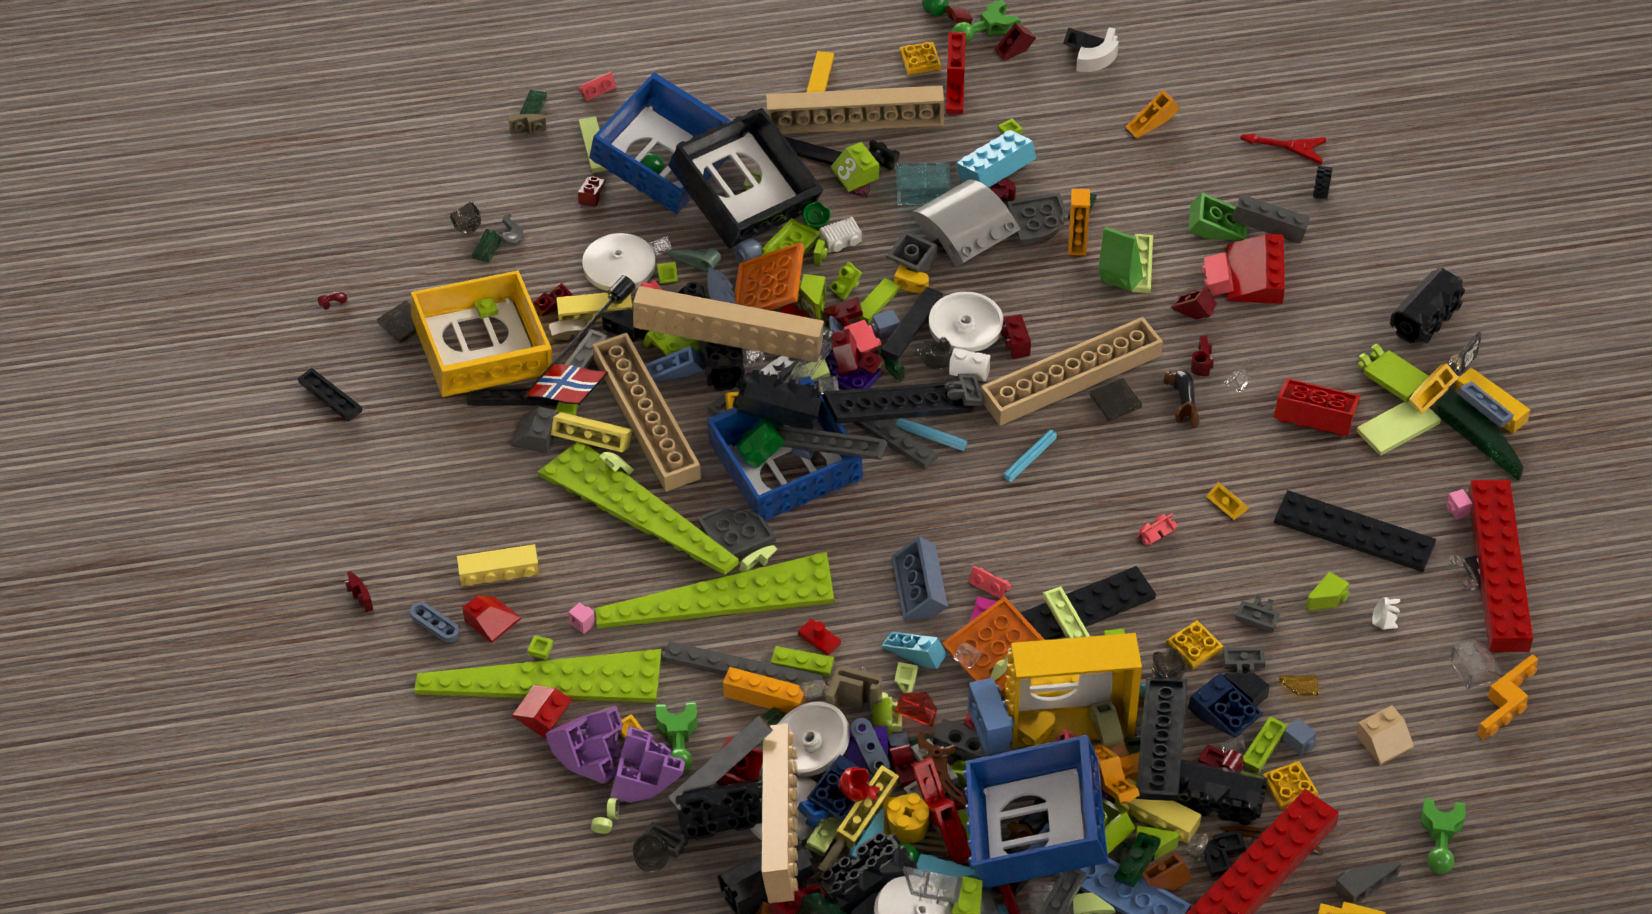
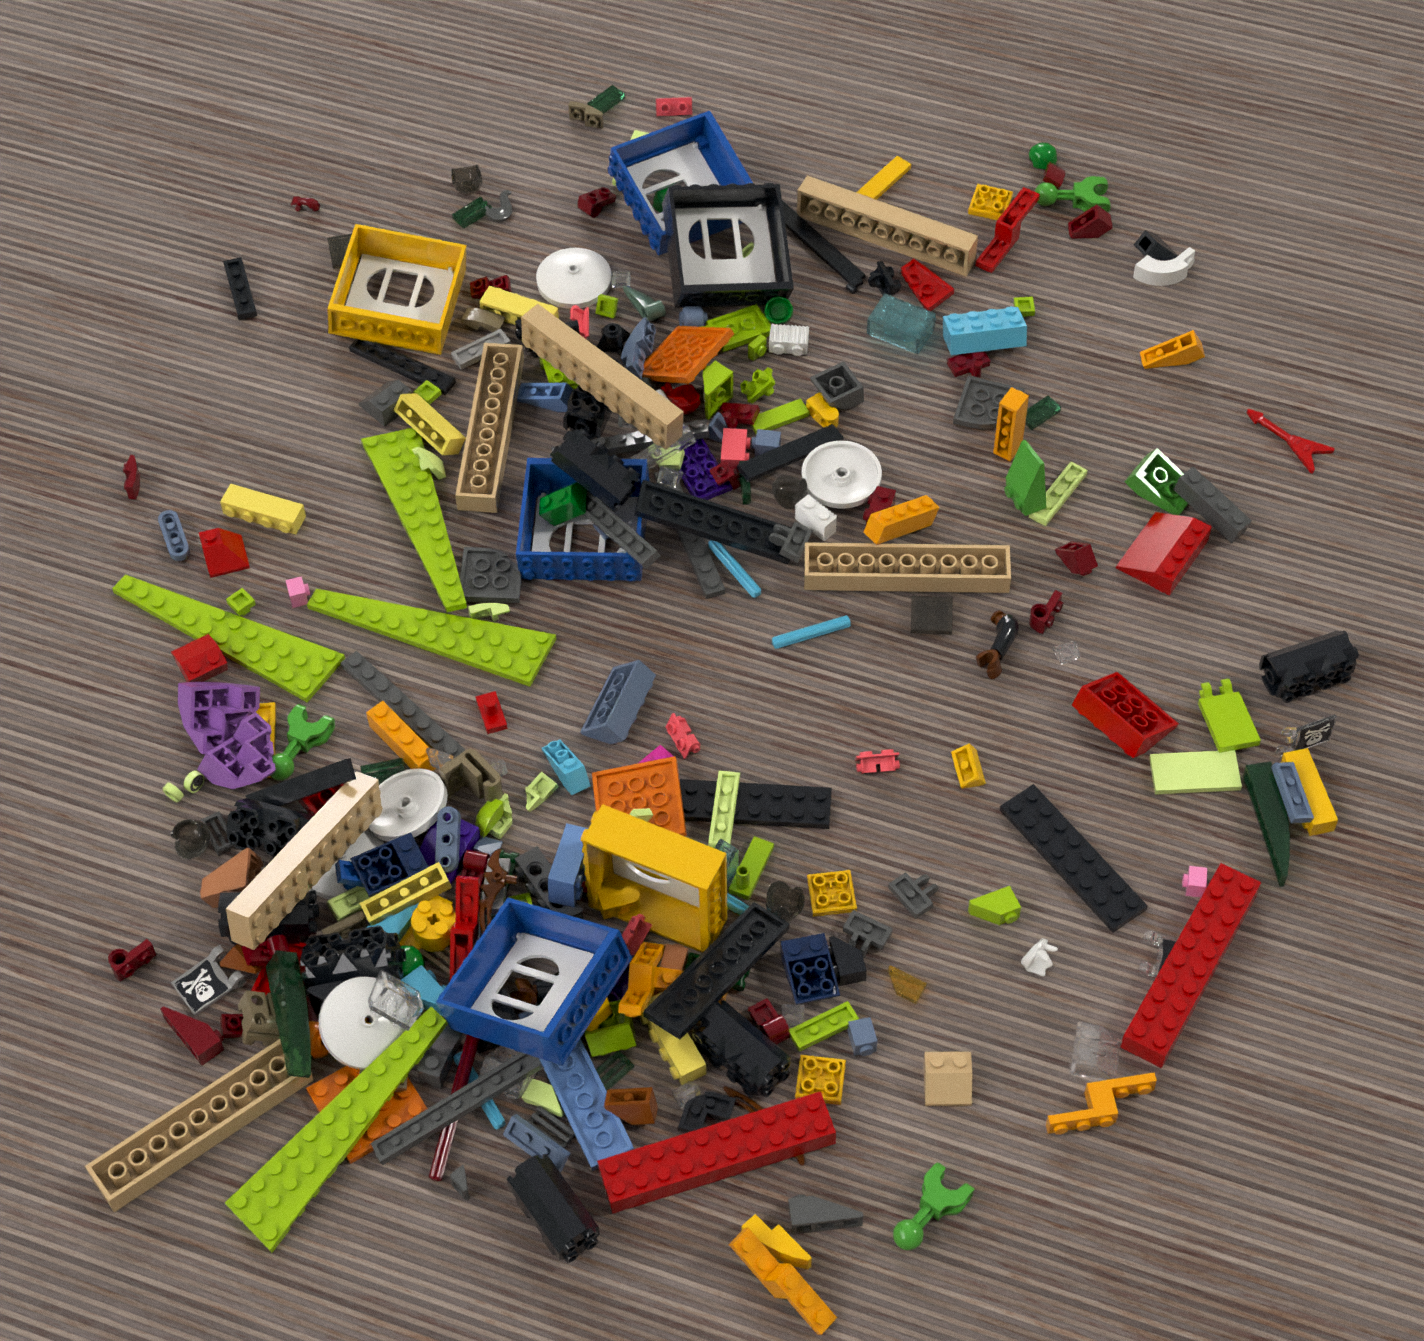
camera: 30 degrees right, 5 degrees up
(486, 307) = (425, 268): lime plate -> none
(572, 383) = (442, 369): flag -> none
(711, 862) = (231, 876): none -> nougat slope
(803, 661) = (459, 727): lime plate -> none
(845, 351) = (704, 451): dark red slope -> none
(855, 167) = (847, 281): lime slope -> none
(855, 785) = (397, 870): red hat -> none
(862, 191) = (842, 302): clear pink tile -> none
(917, 707) = (525, 824): clear red slope -> none
(919, 145) = (926, 285): none -> red wing
(966, 220) = (912, 377): light grey slope -> none
(967, 655) = (604, 794): clear slope -> none
(1043, 334) = (901, 519): none -> light orange brick
(1106, 723) = (678, 928): olive slope -> none
(1137, 859) = (613, 1076): dark green plate -> none
(1169, 839) = (653, 1070): lime slope -> none
(1218, 274) = (1121, 537): coral brick -> none
(1322, 182) = (1292, 491): black tyre -> none
(1433, 387) = (1251, 750): yellow slope -> none

